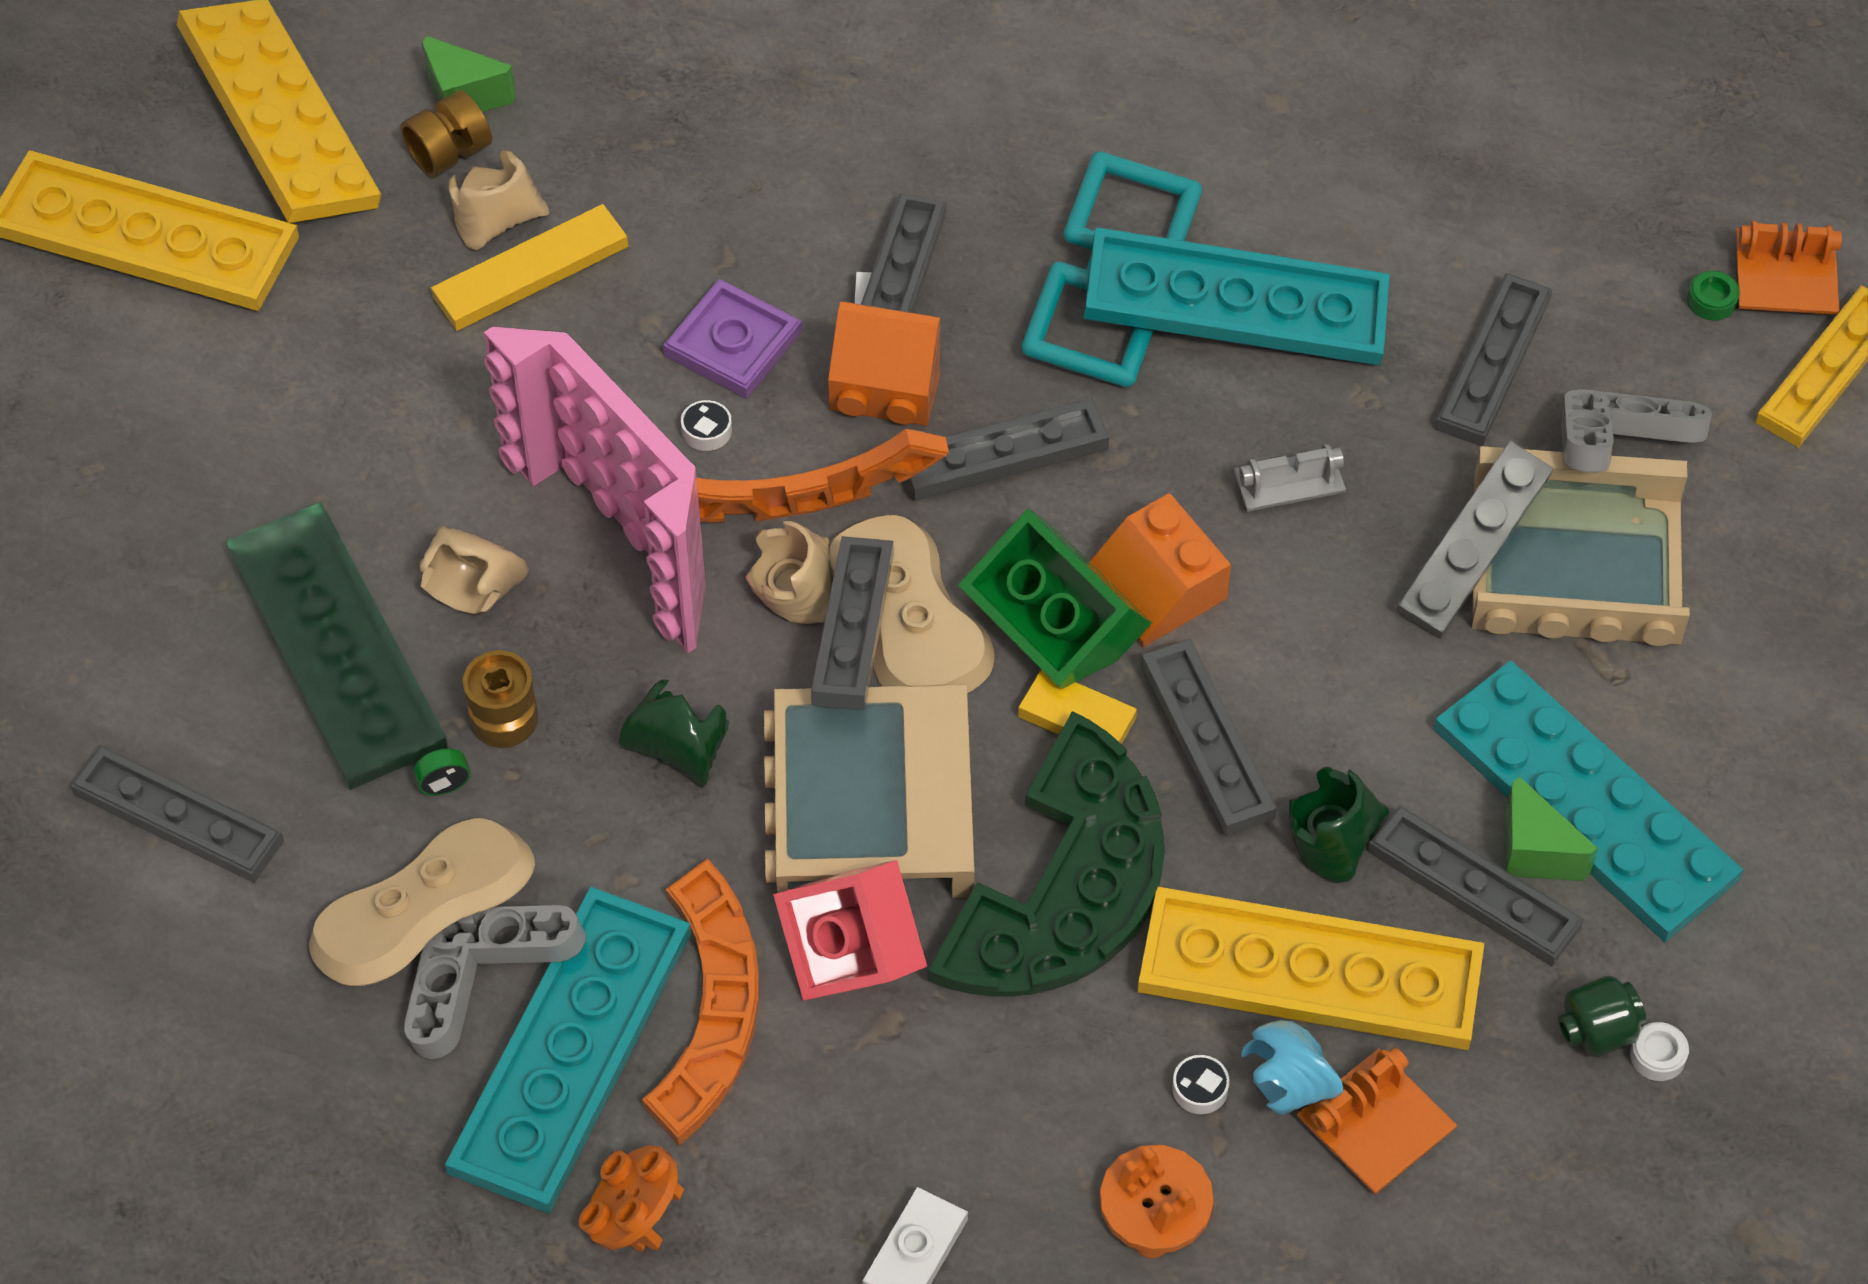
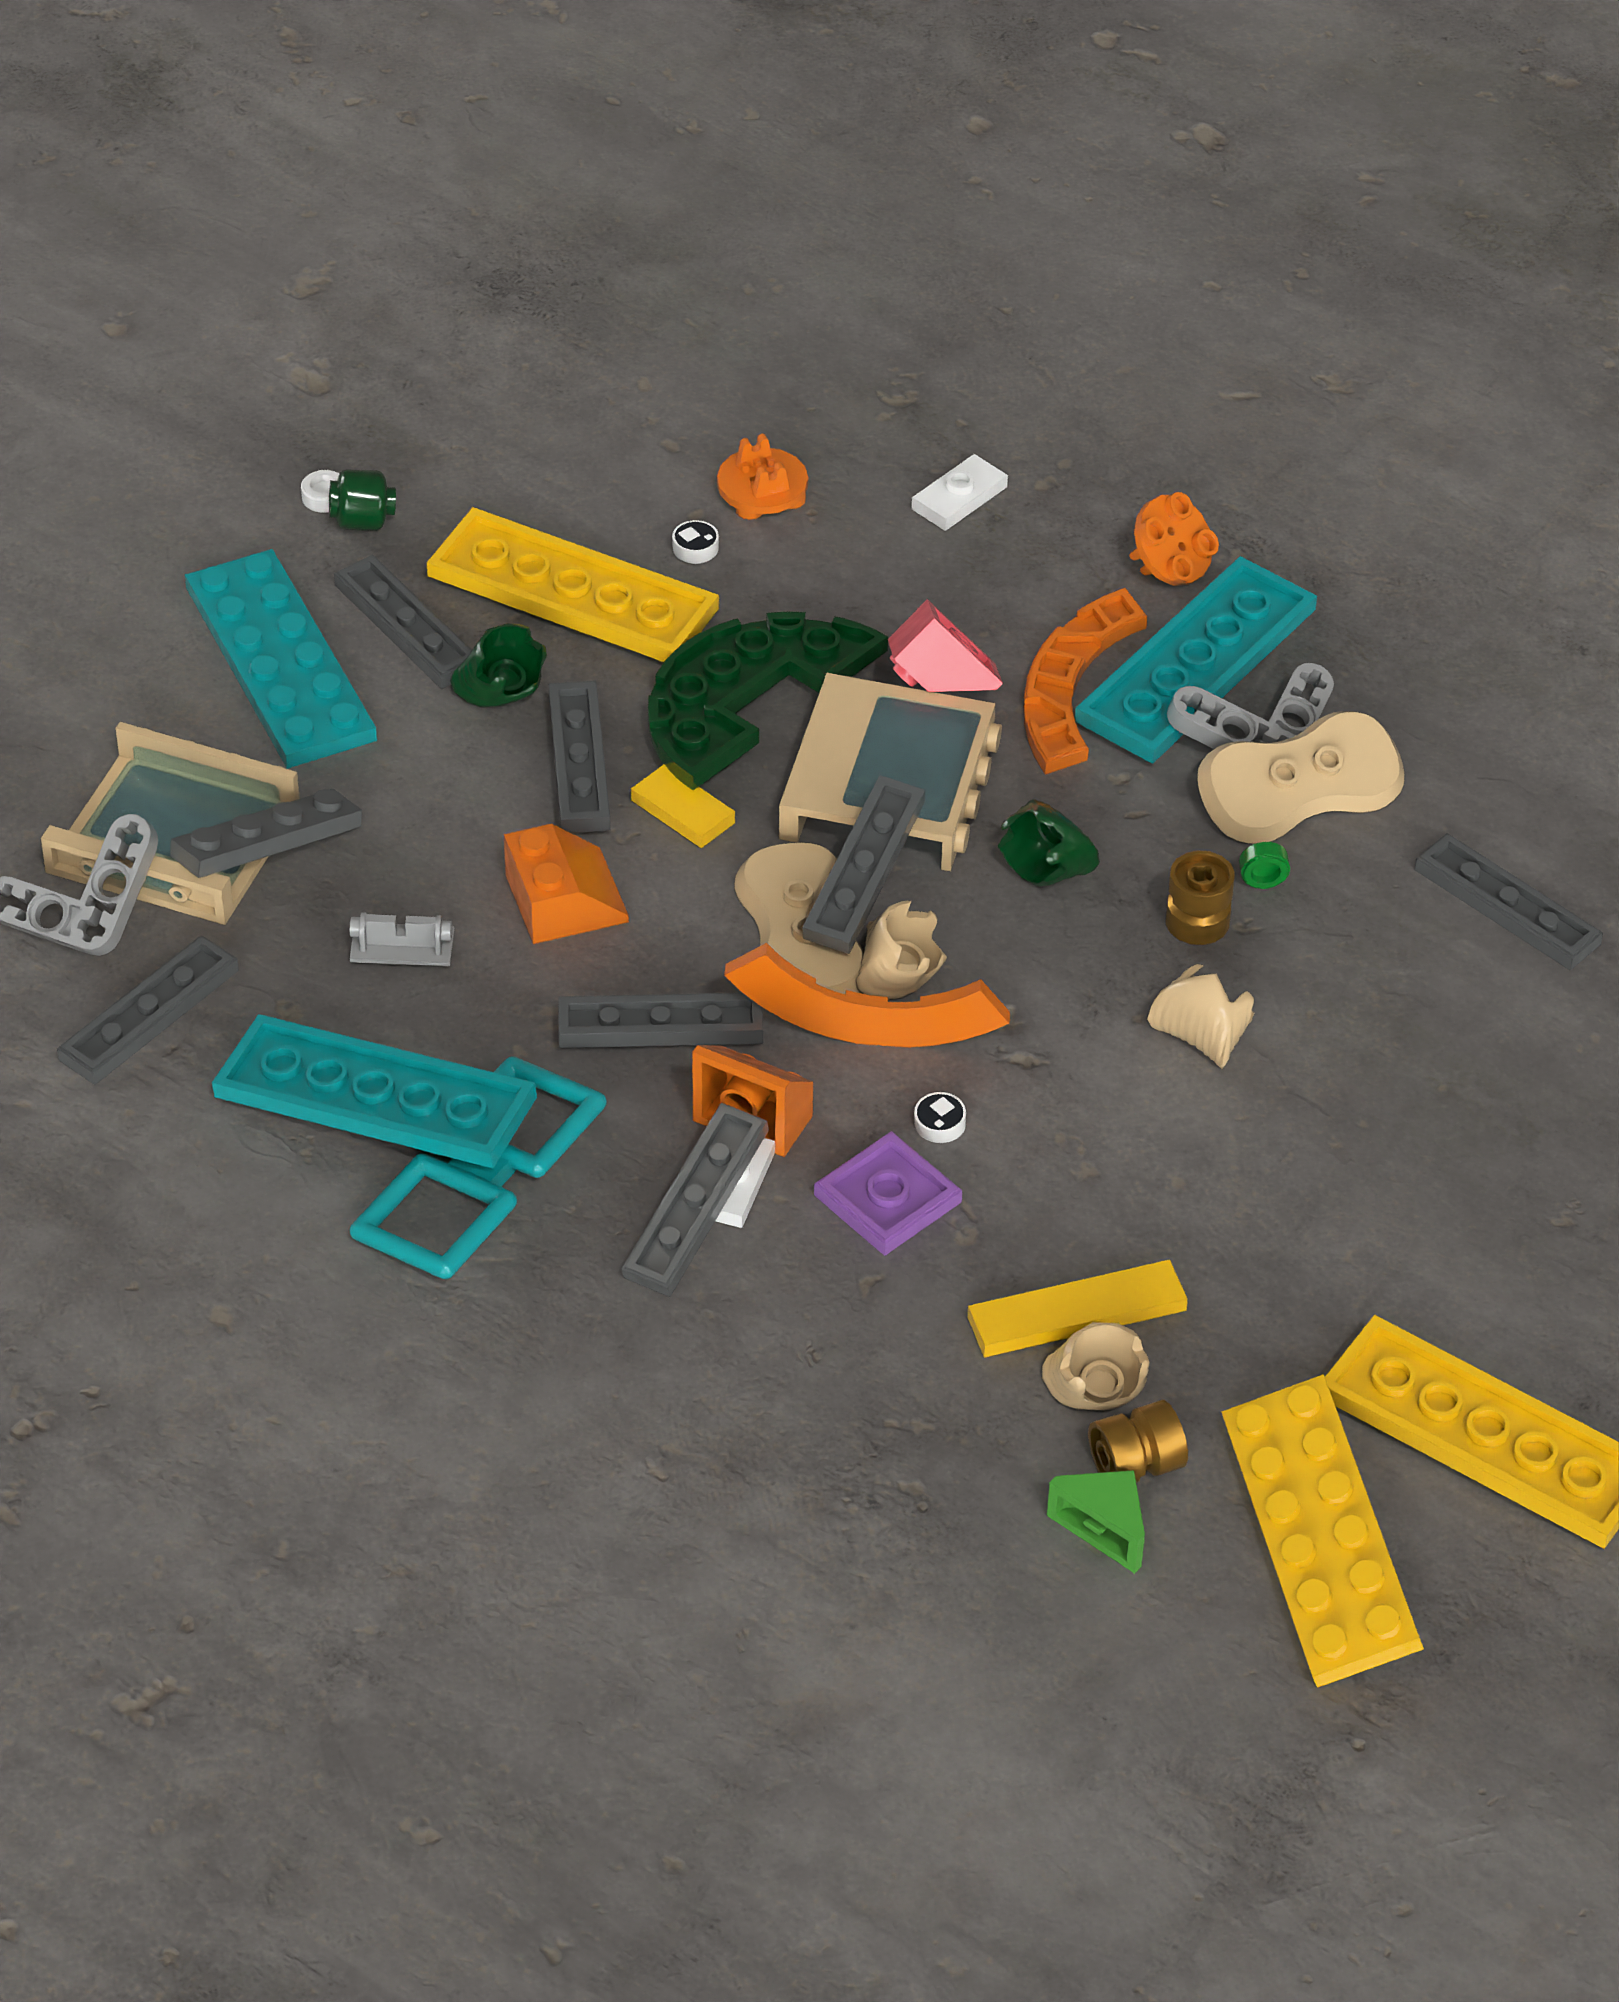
camera: 165 degrees left, 10 degrees down
(336, 645) = (1344, 995): clear green plate -> none
(570, 415) = (1080, 1034): bright pink slope -> none
(1053, 601) = (668, 868): green slope -> none
(1293, 1069) = (623, 508): medium azure hair -> none
(1378, 1120) = (570, 492): orange hinge -> none
(1542, 840) = (343, 618): bright green slope -> none

